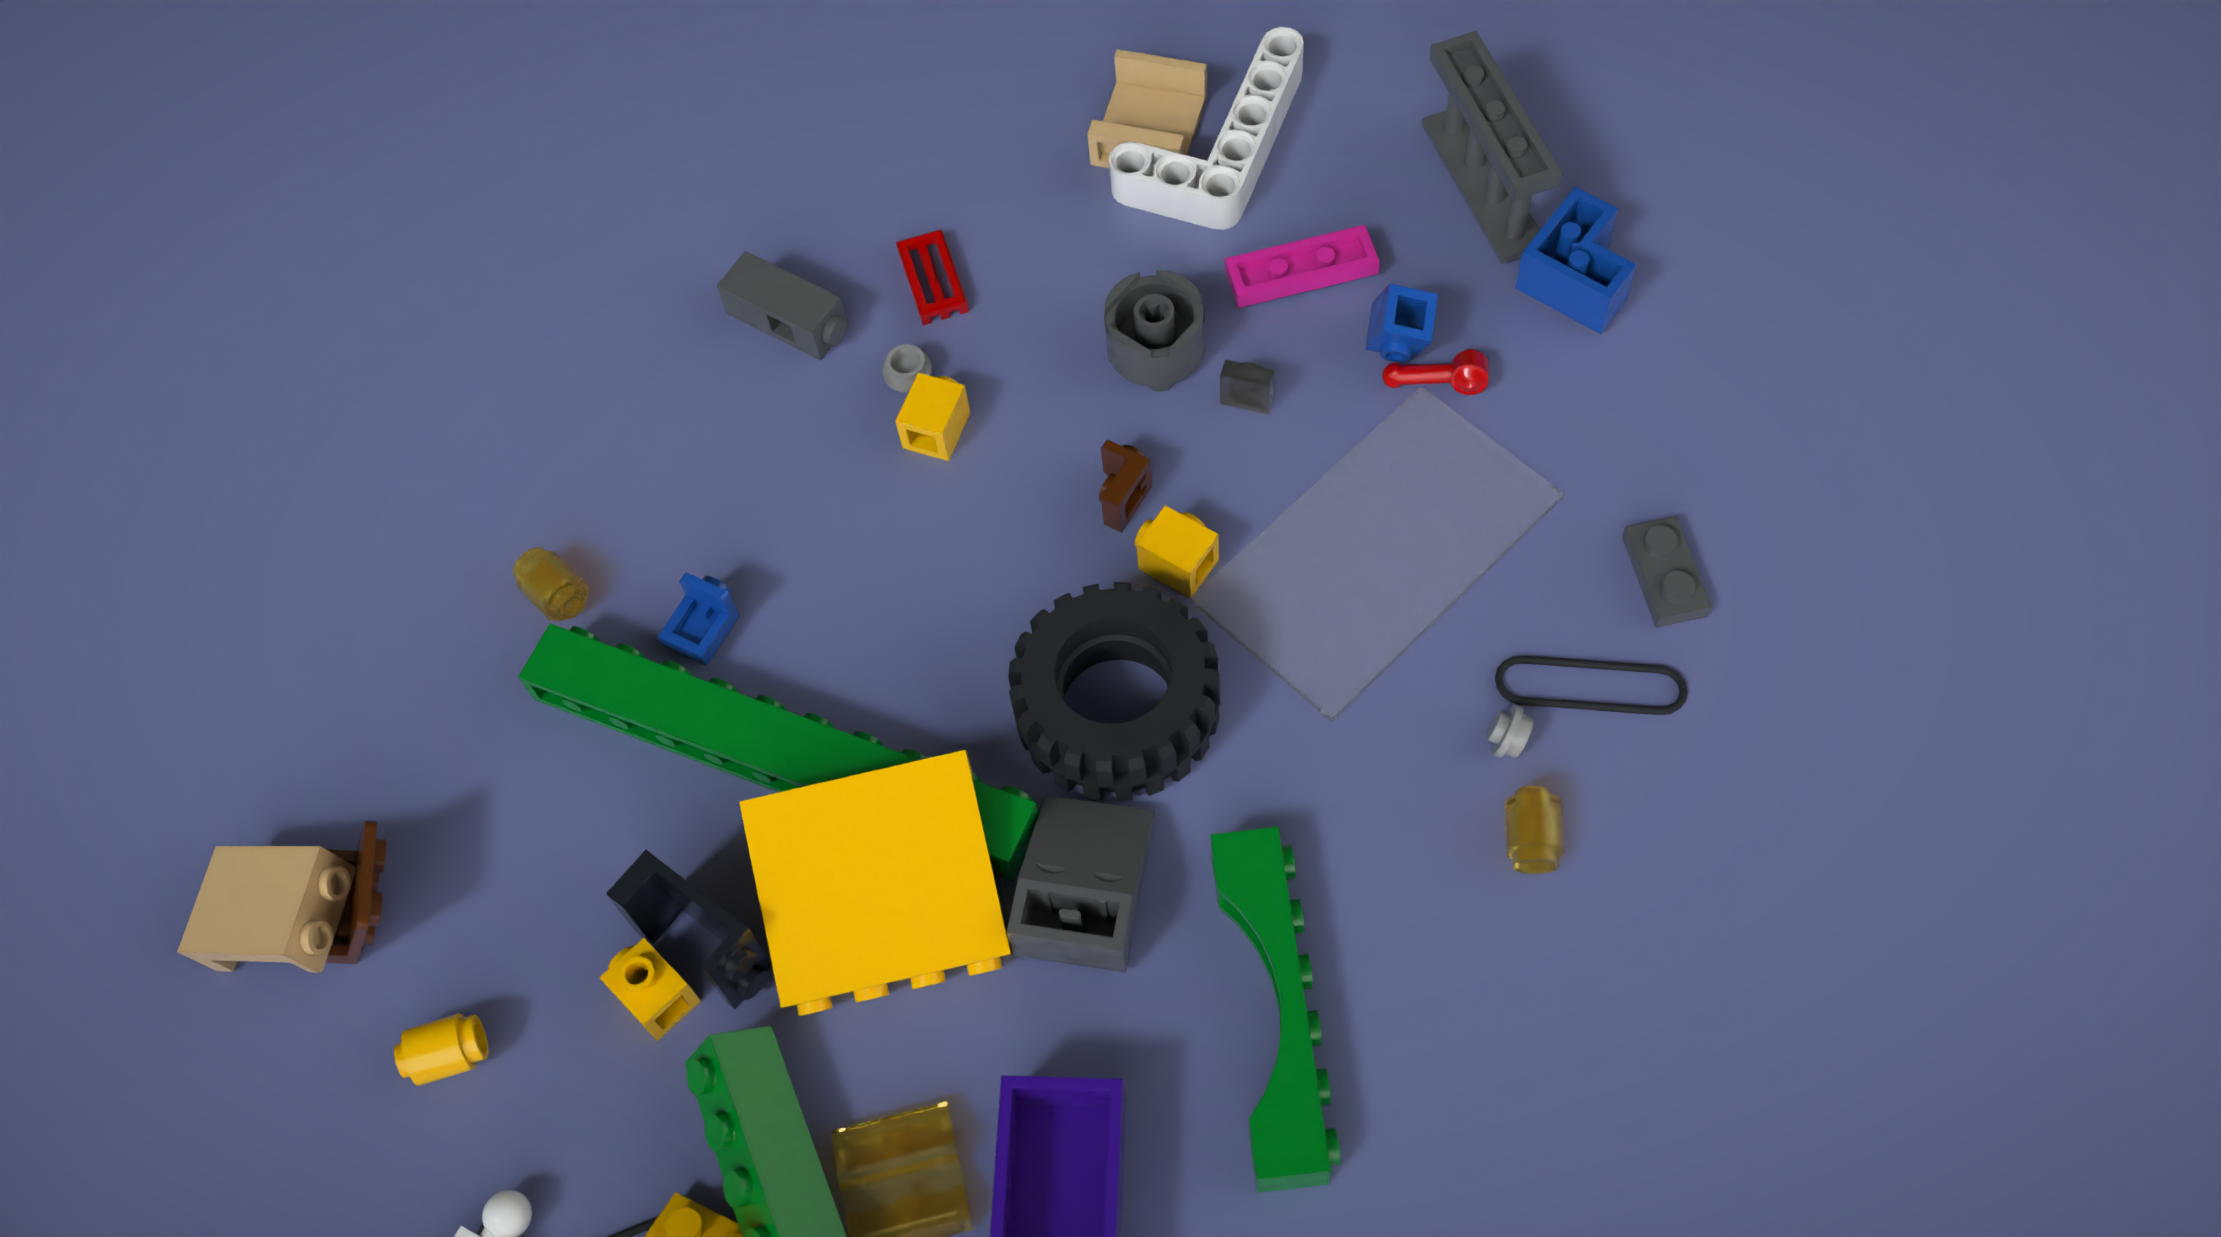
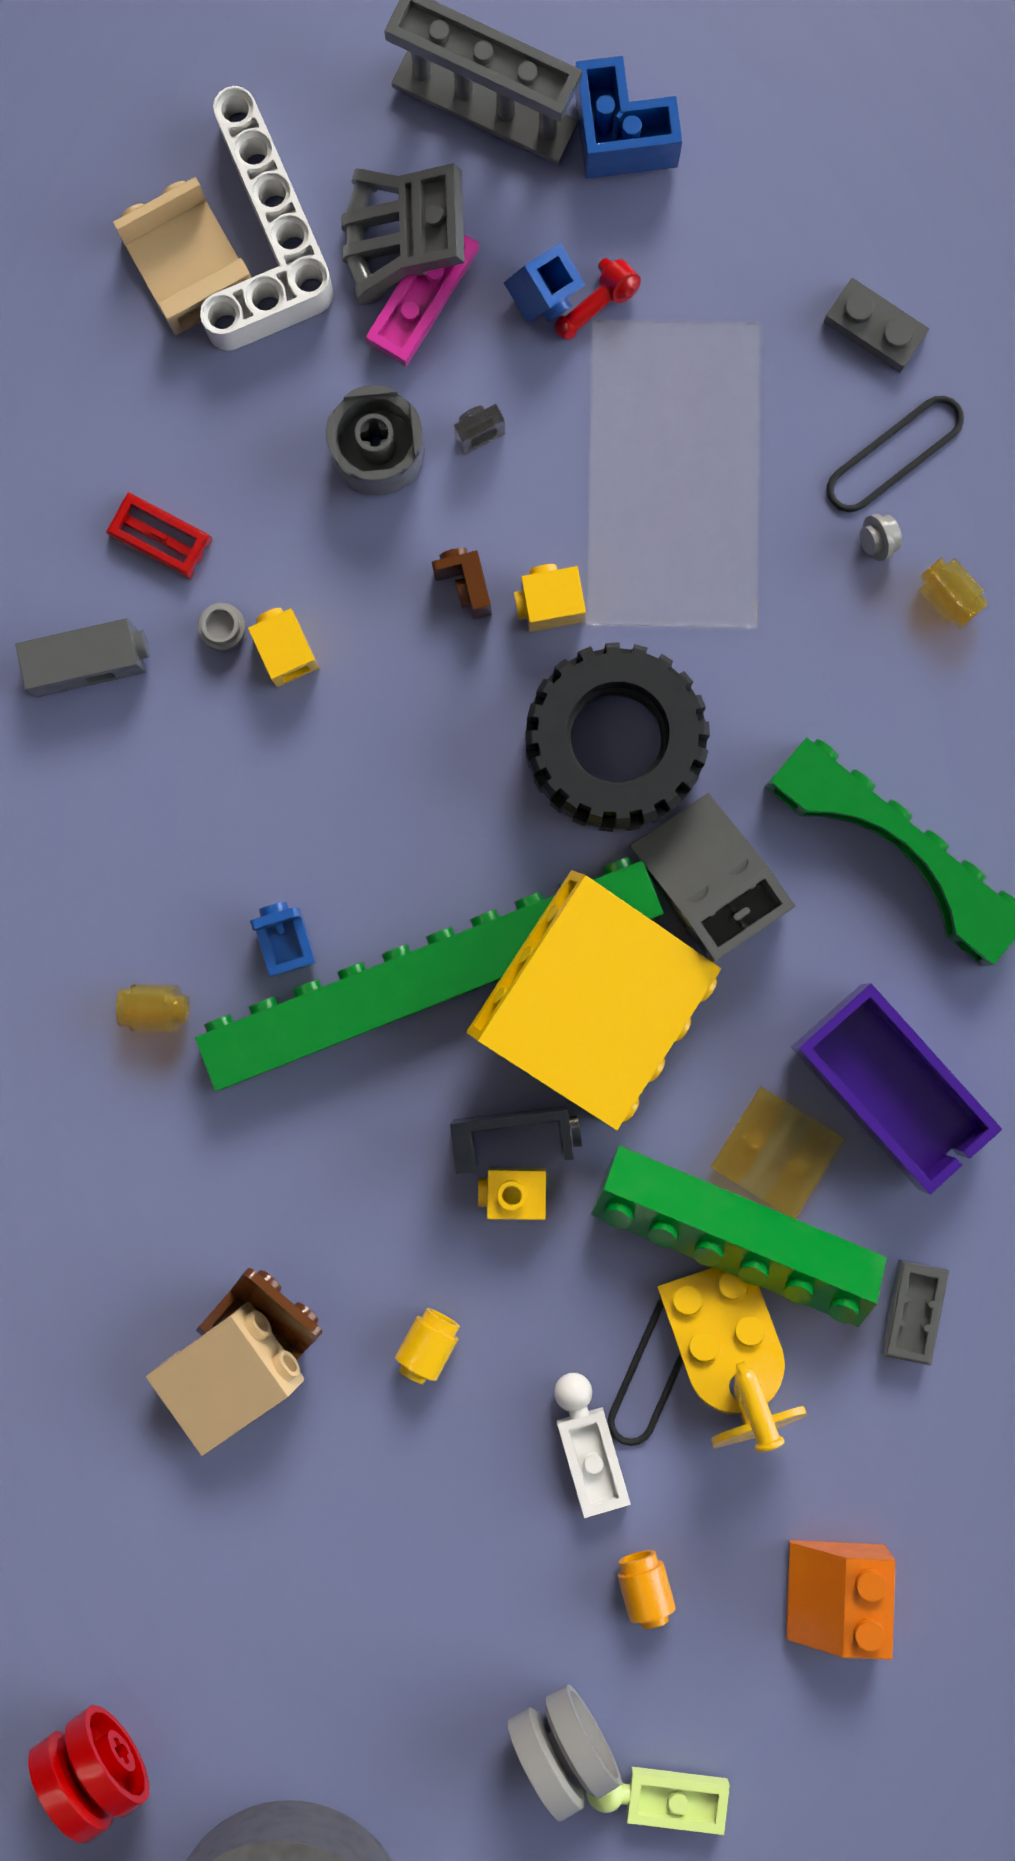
camera: 45 degrees left, 25 degrees up
(1343, 218) = (428, 221): none -> dark grey plate

